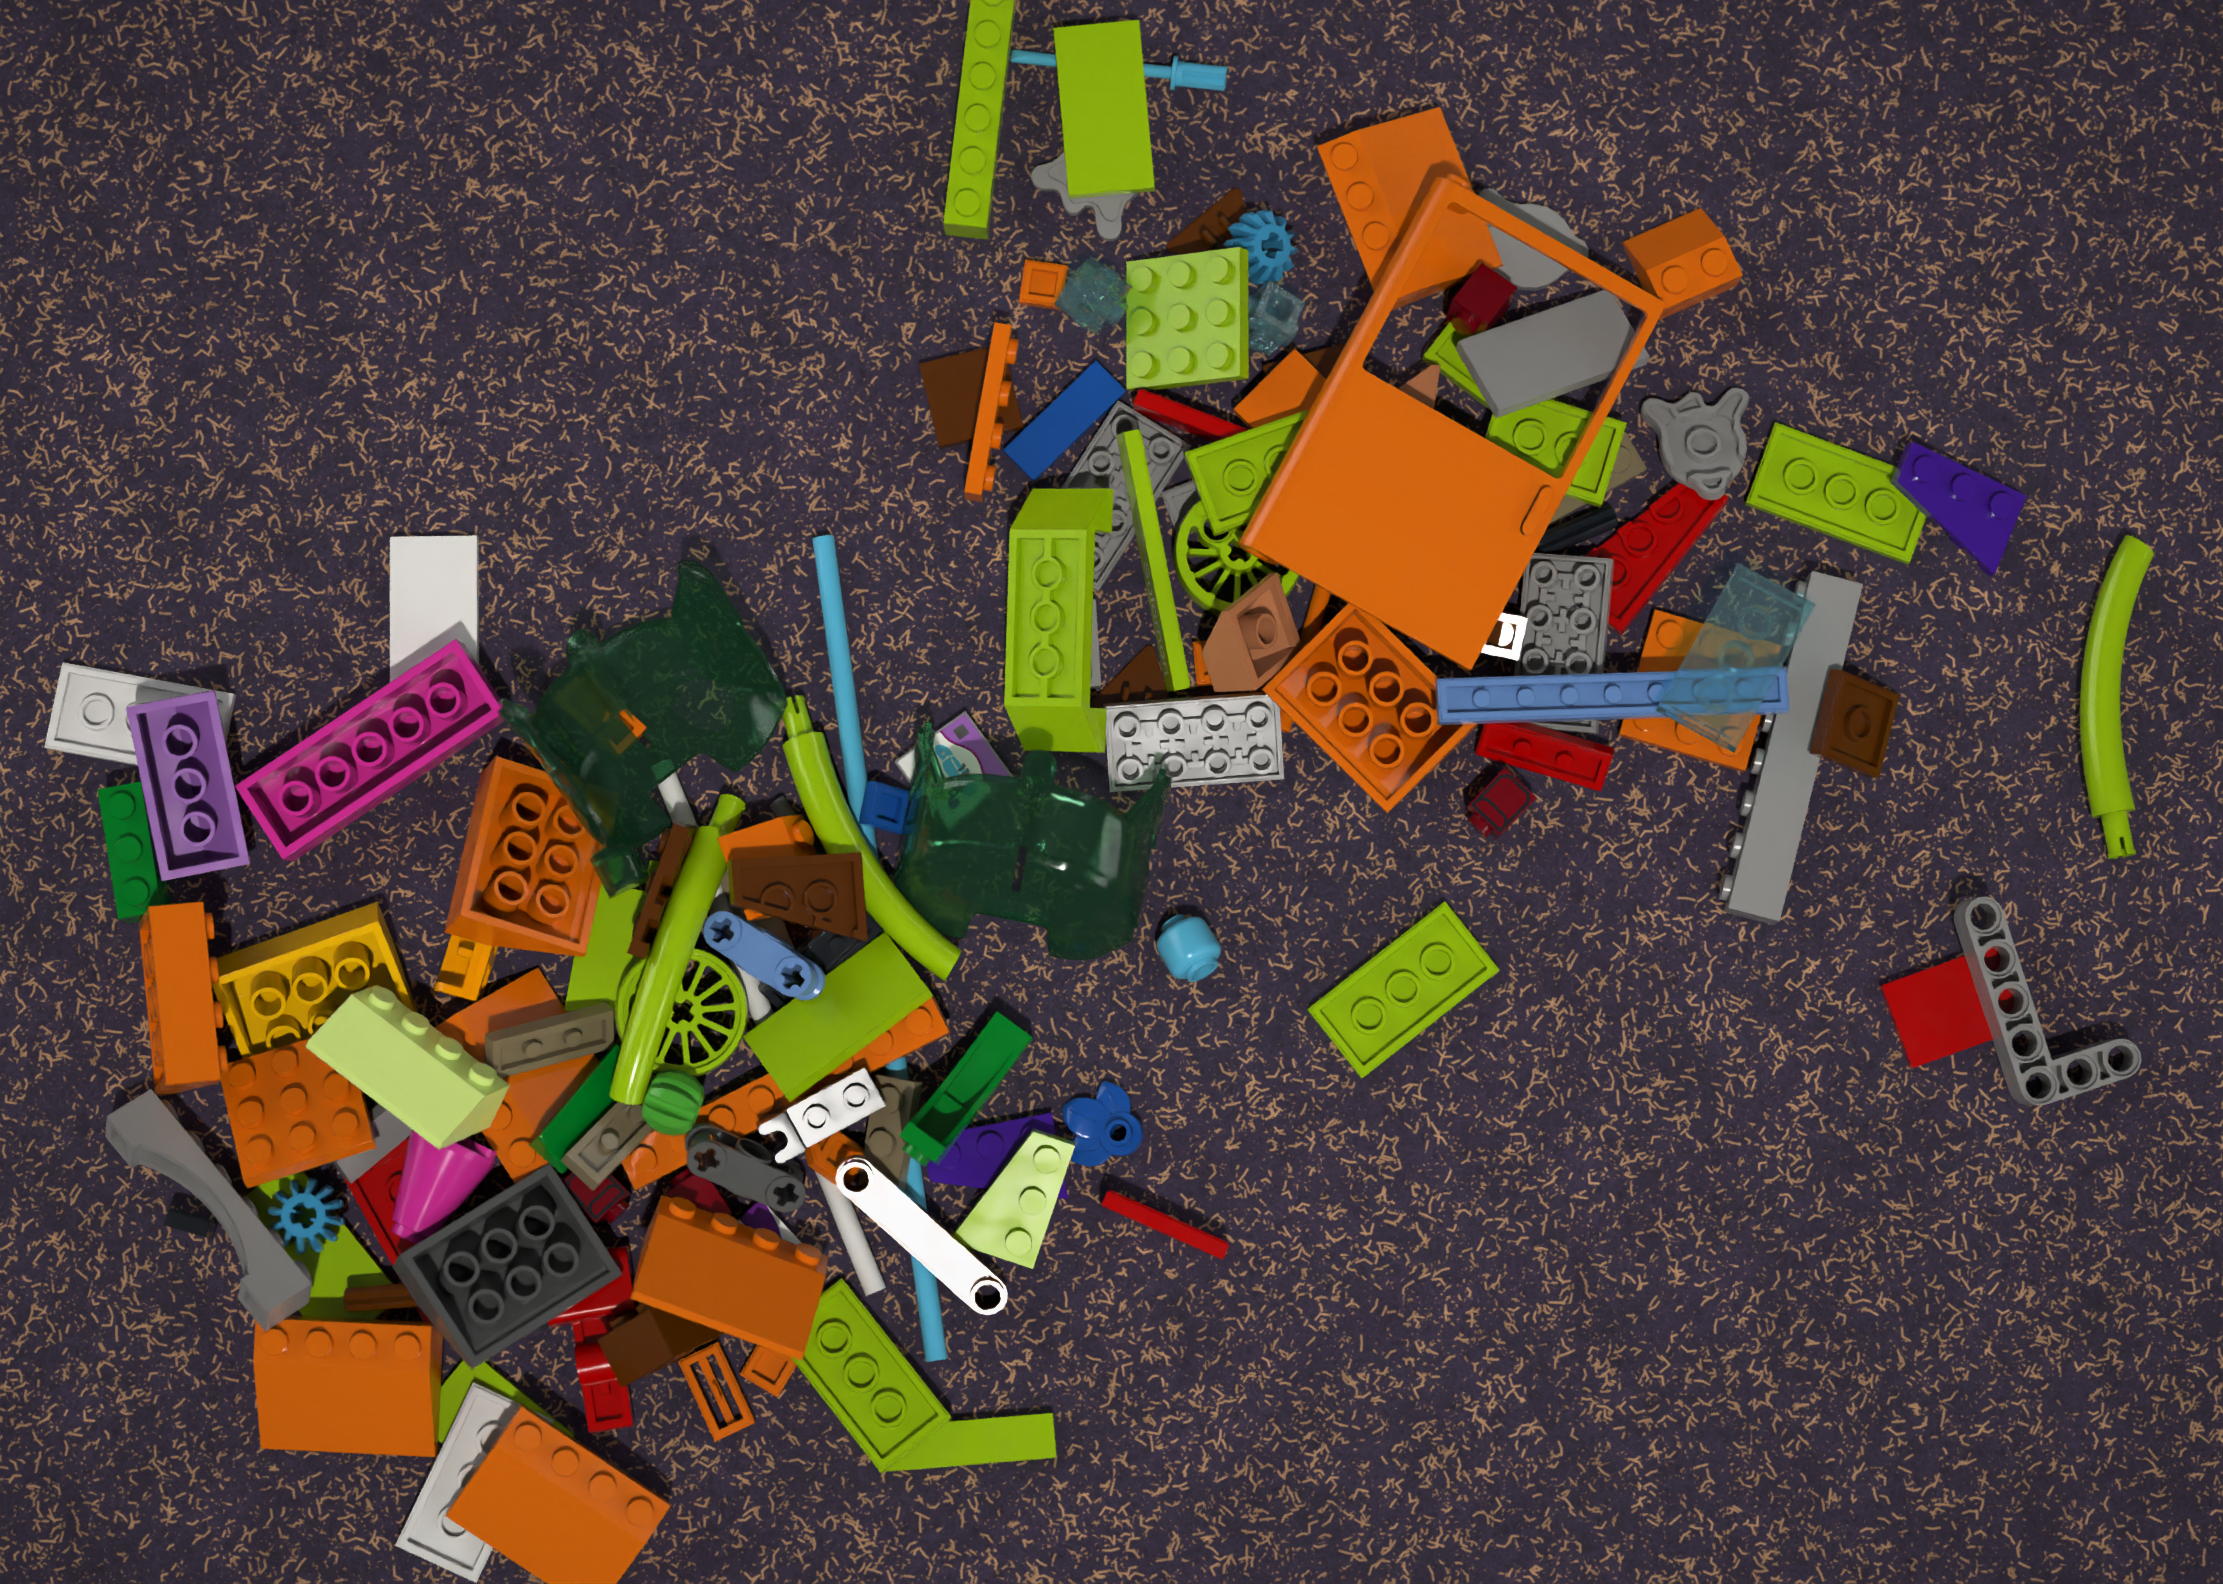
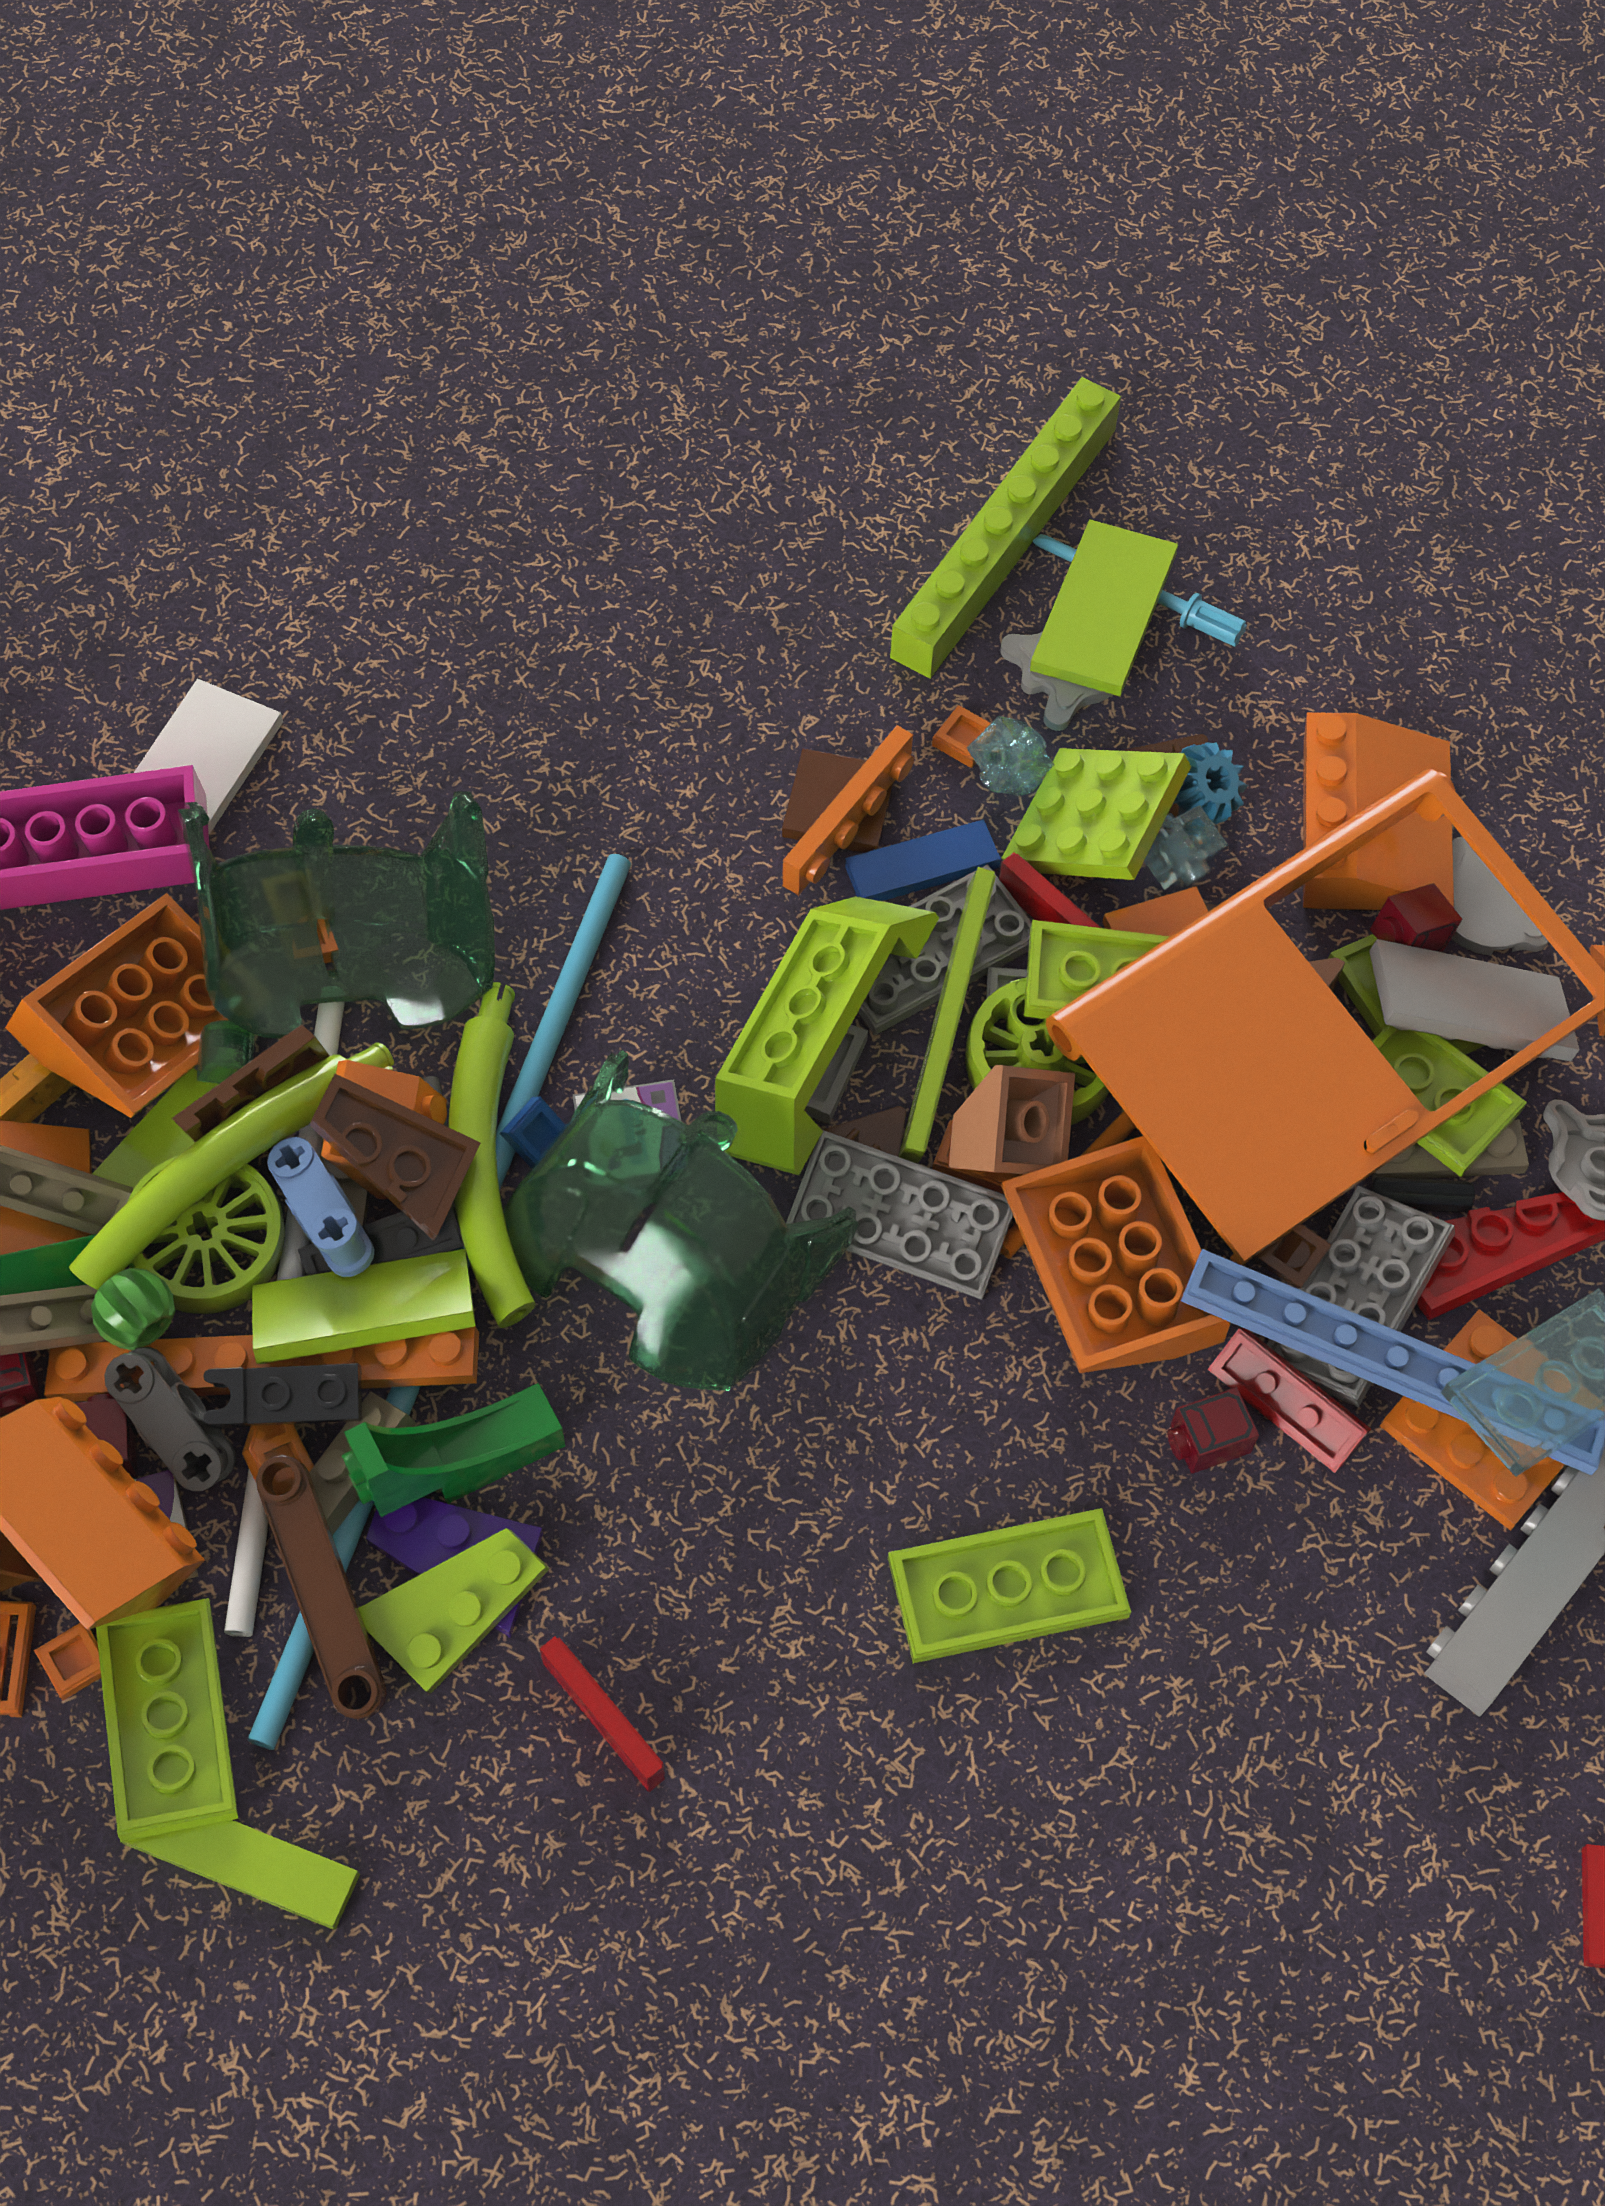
camera: 25 degrees right, 20 degrees down
(1095, 1125) = (584, 1567): blue plate -> none
(1188, 948) = (787, 1422): medium azure head -> none

